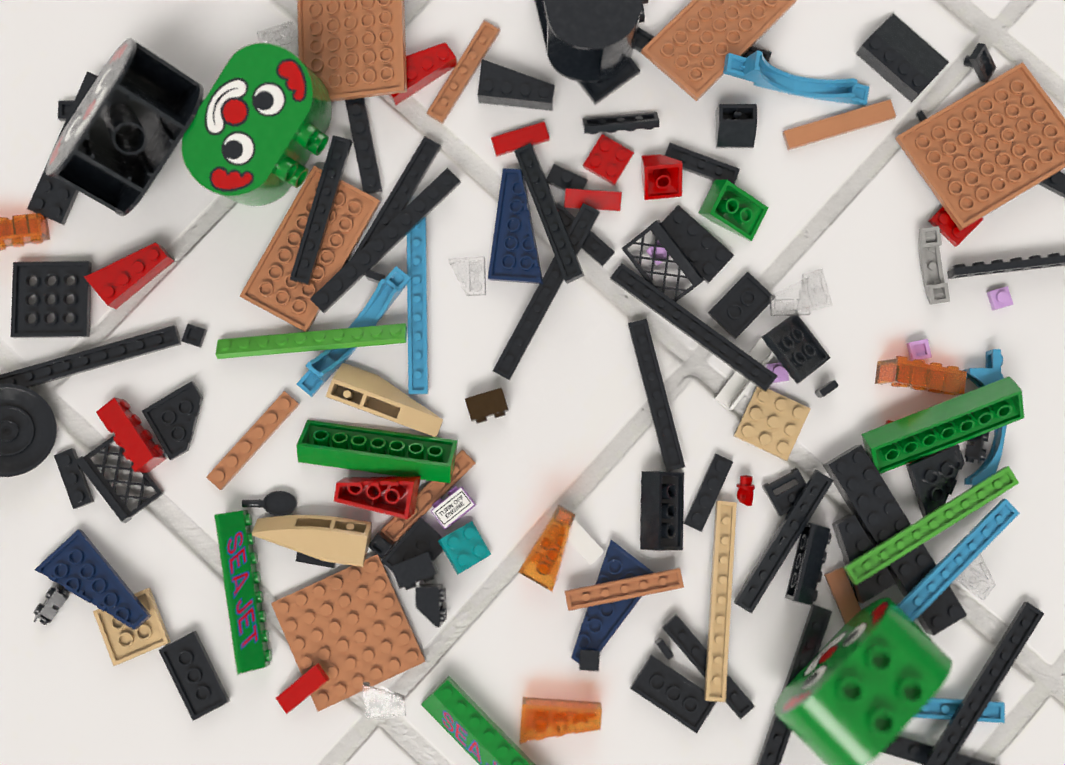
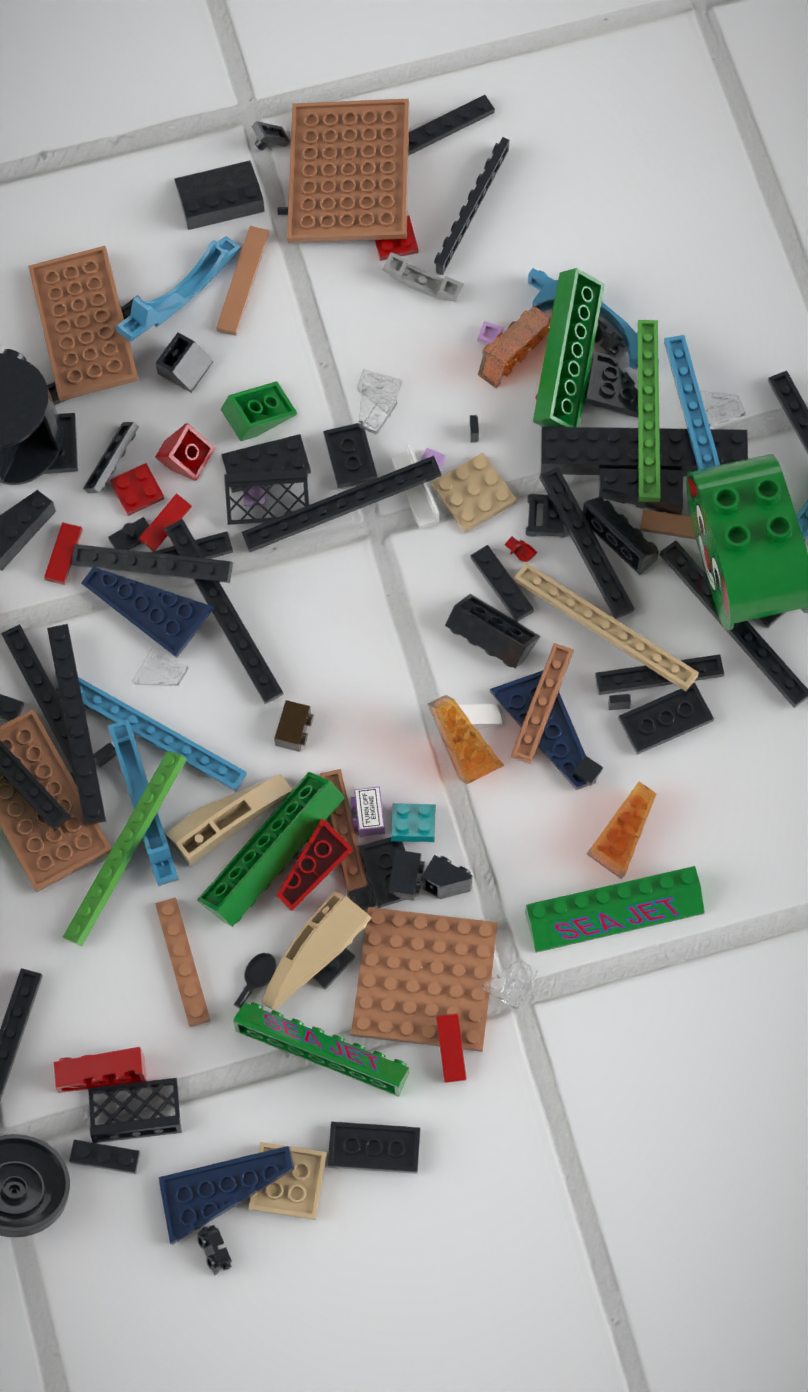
camera: 60 degrees left, 15 degrees down
(175, 419) = (112, 1021): black plate -> none
(194, 335) = (42, 958): black tile -> none
(656, 395) = (382, 574): black plate -> none
(702, 165) = (198, 412): black plate -> none
(796, 348) = (419, 429): black plate -> none
(1000, 298) = (488, 243): lavender plate -> none

